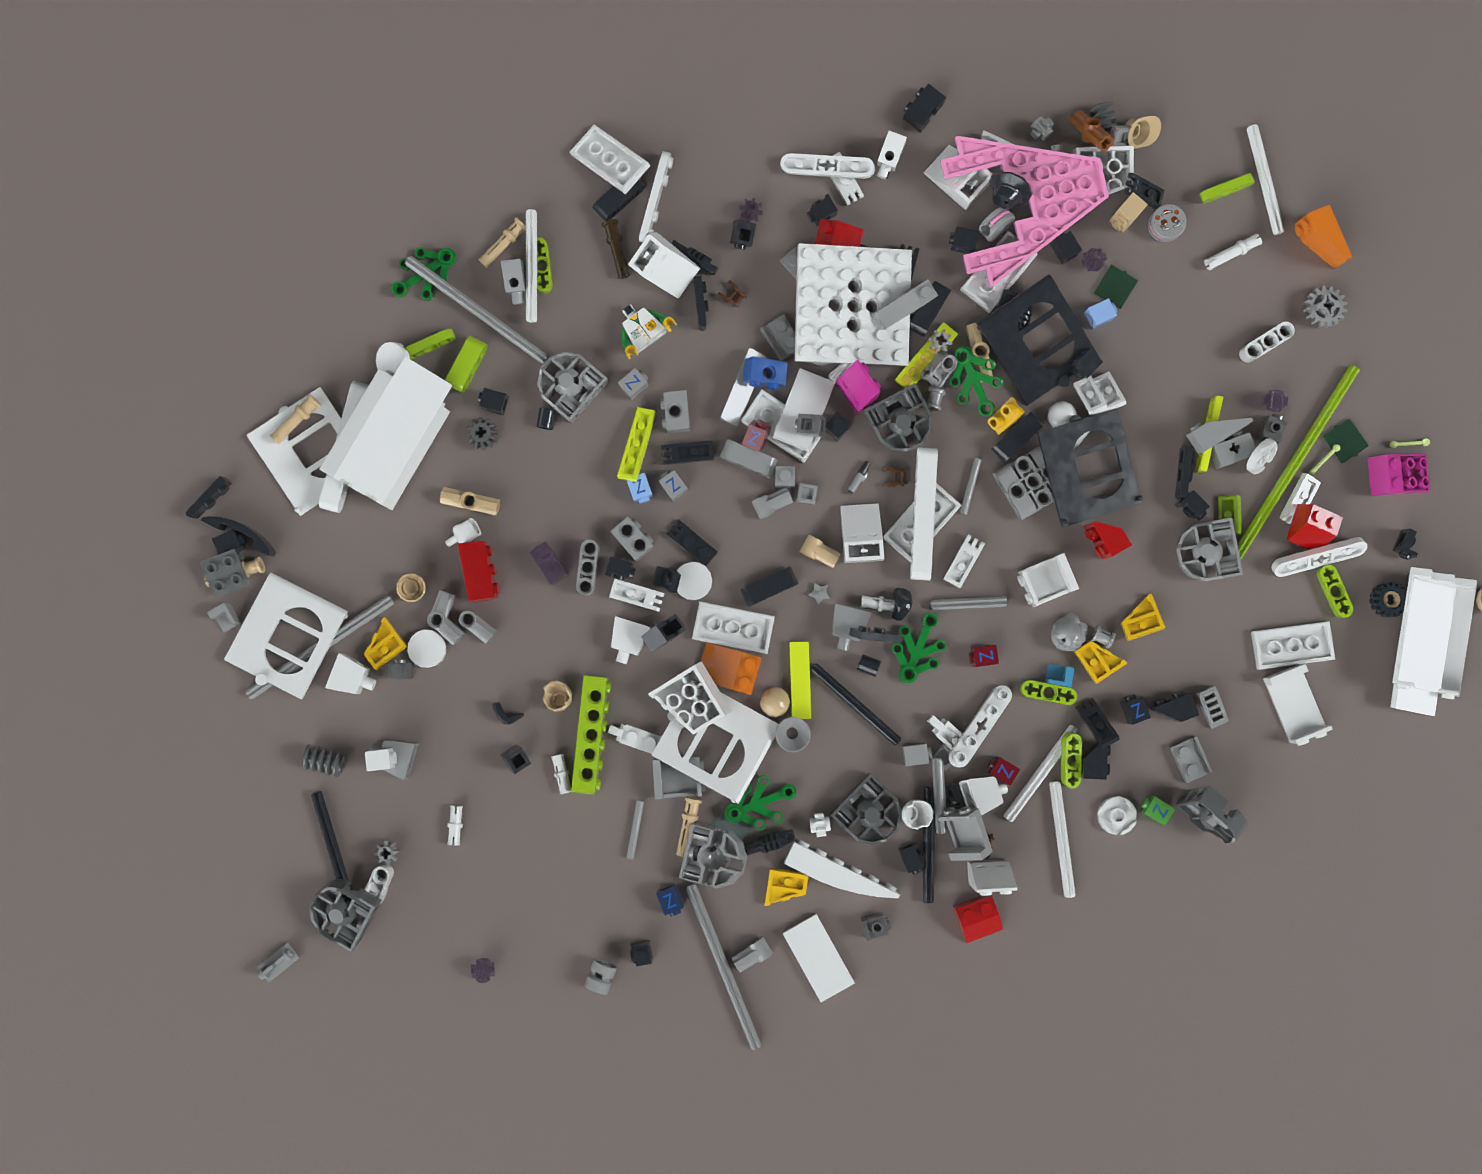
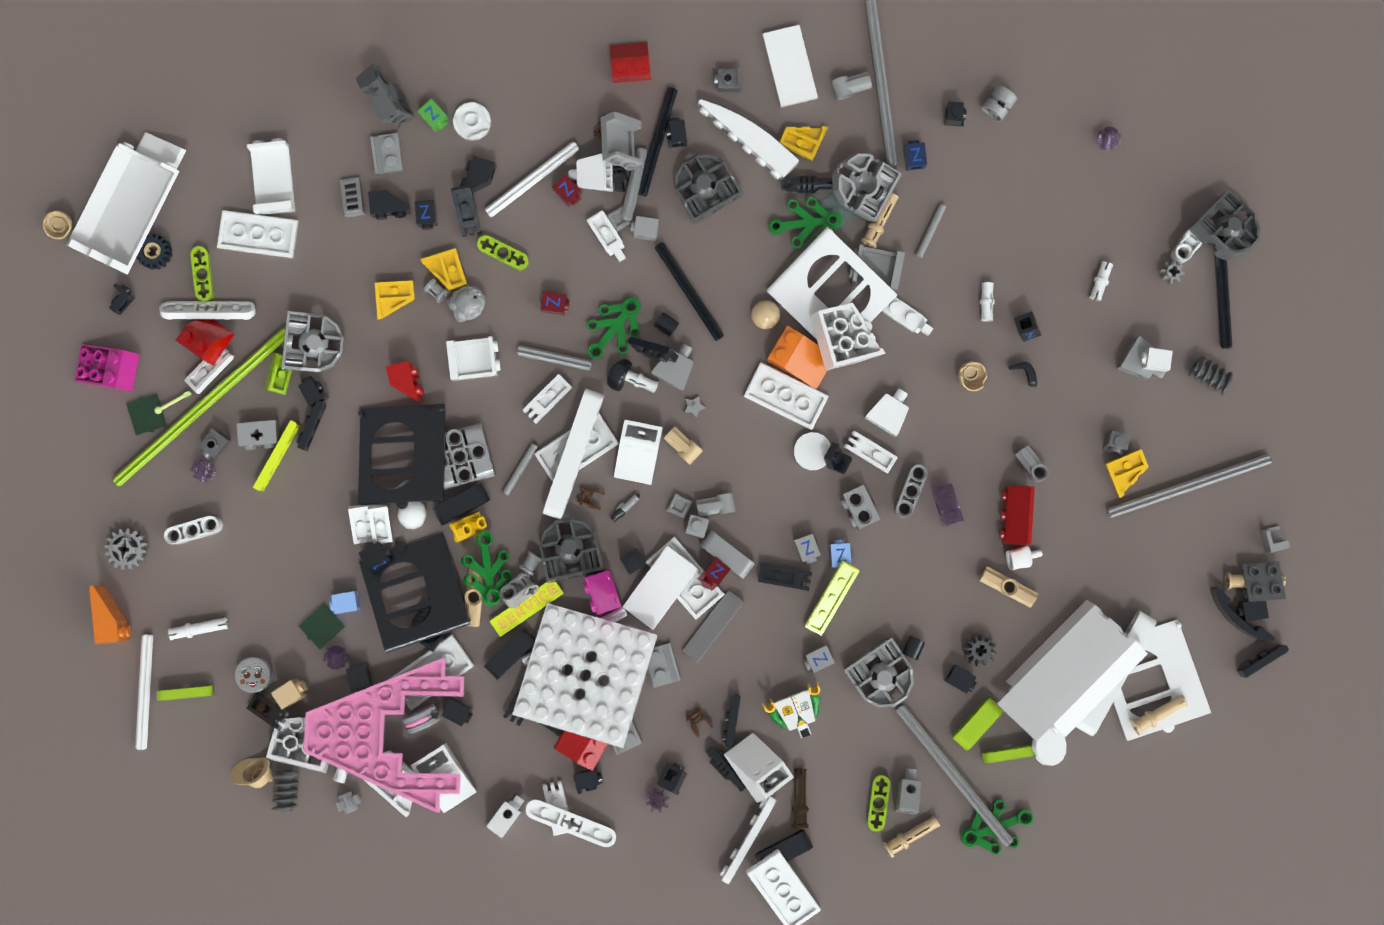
camera: 170 degrees left, 0 degrees up
(257, 629) = (1234, 531): white door -> none
(277, 963) = (1301, 198): light grey hinge -> none
(349, 676) = (1167, 449): white torso -> none
(411, 587) = (1086, 518): tan hair -> none
(427, 648) = (1086, 456): white tile -> none
(446, 628) = (1061, 490): light grey piece -> none
(531, 266) = (889, 802): white axle -> none
(580, 783) = (971, 287): lime brick -> none
(620, 569) = (879, 481): black brick -> none
(663, 633) = (854, 406): black brick -> none
(678, 400) = (783, 608): light grey brick -> none
(693, 543) = (803, 487): black hinge -> none
(769, 586) = (741, 425): black beam -> none
(775, 371) = (678, 629): blue brick -> none
(800, 680) = (735, 328): neon yellow tile -> none
(800, 741) = (754, 269): light grey piece -> none
(818, 425) = (651, 566): flat silver brick -> none
(820, 824) = (754, 187): white gear -> none
(906, 304) = (533, 660): light grey slope -> none
(917, 814) = (660, 171): white hair -> none
(927, 102) = (453, 861): black brick -> none
(945, 339) = (515, 615): light grey gear -> none
(969, 741) = (562, 250): white piece -> none
(991, 876) = (607, 94): white slope -> none
(1009, 189) = (401, 744): black hat -> none
(1059, 675) = (488, 265): dark azure panel -> none
(1062, 839) = (530, 111): white axle -> none
(1066, 751) = (502, 192): lime beam -> none
(1091, 130) = (302, 785): dark orange piece -> none
(1120, 135) = (276, 772): light grey tile -> none
(1211, 433) = (278, 452): light grey slope -> none
(1263, 453) = (232, 422): white tile -> none
(1424, 442) = (71, 392): yellowish green hinge -> none

